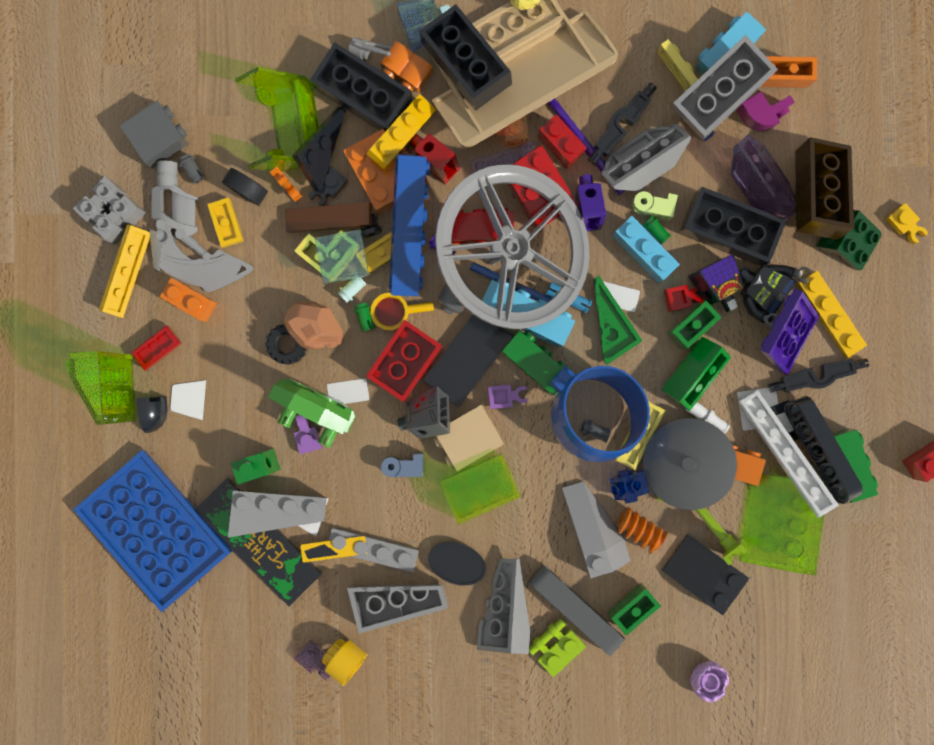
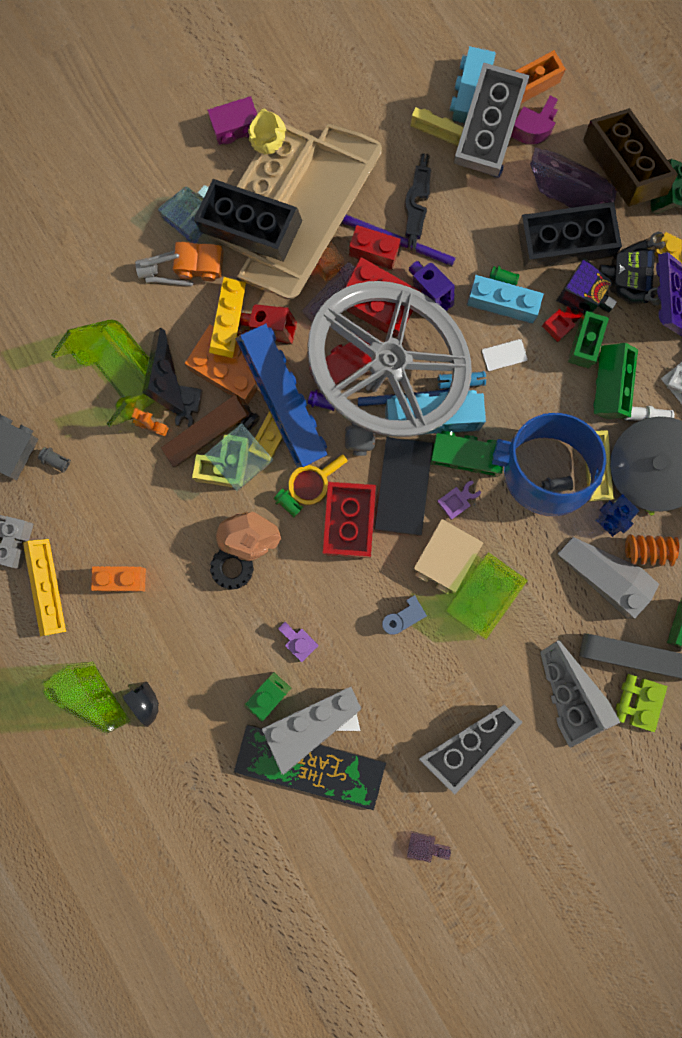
camera: 30 degrees left, 5 degrees down
(152, 530) = (205, 814): blue plate -> none
(156, 348) = (113, 641): red plate -> none
(189, 399) = (169, 671): white sticker -> none
(209, 272) = (122, 545): light grey piece -> none
(225, 222) = (112, 490): yellow plate -> none
(244, 186) = (113, 446): black tyre -> none
(314, 406) = (291, 604): bright green brick -> none
(326, 550) = (384, 731): yellow sticker -> none
(343, 660) = (454, 830): yellow piece -> none
(349, 391) = (312, 580): white sticker -> none
(351, 289) = (262, 483): light aqua pin -> none
(360, 88) = (168, 301): black brick -> none
(377, 550) = (420, 711): light grey plate -> none
(427, 414) = (398, 556): dark grey torso -> none
(457, 563) = (504, 678): black piece -> none
(615, 328) = (519, 383): green wing -> none
(645, 157) = (457, 218): light grey wedge -> none
(651, 206) = (484, 259): yellowish green leg -> none

